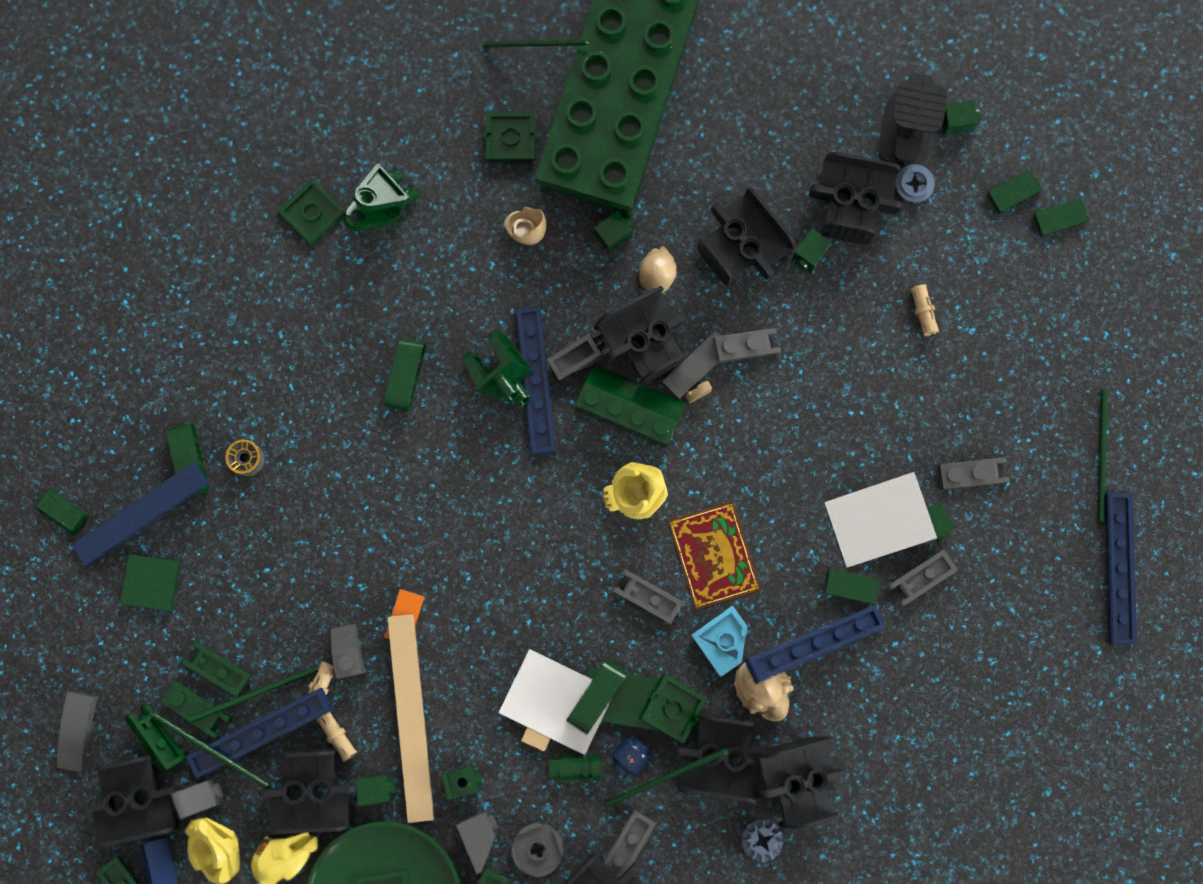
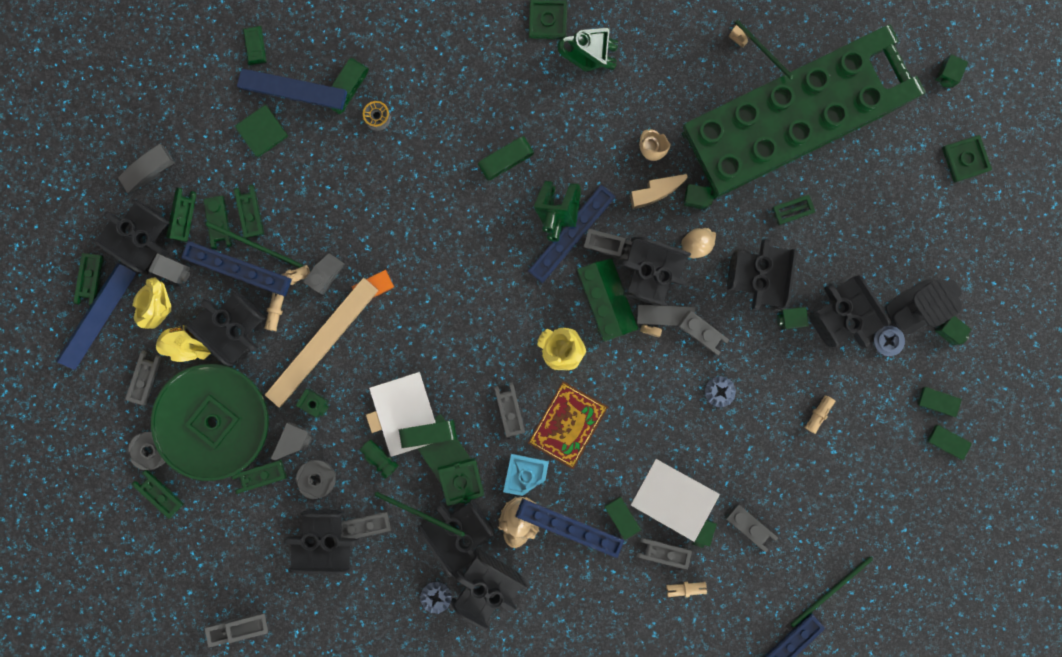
camera: 45 degrees right, 5 degrees up
(211, 751) = (202, 252): dark green axle -> none
(375, 789) = (265, 360): dark green brick -> none
(500, 55) = (738, 36): none -> tan tile
(510, 136) = (696, 87): dark green plate -> none
(571, 264) = (656, 190): none -> tan slope
(630, 756) = (413, 483): dark blue head -> none
(702, 174) = (778, 215): none -> dark green tile
(808, 389) = (711, 390): none -> sand blue gear
(976, 589) = (686, 589): none -> tan pin

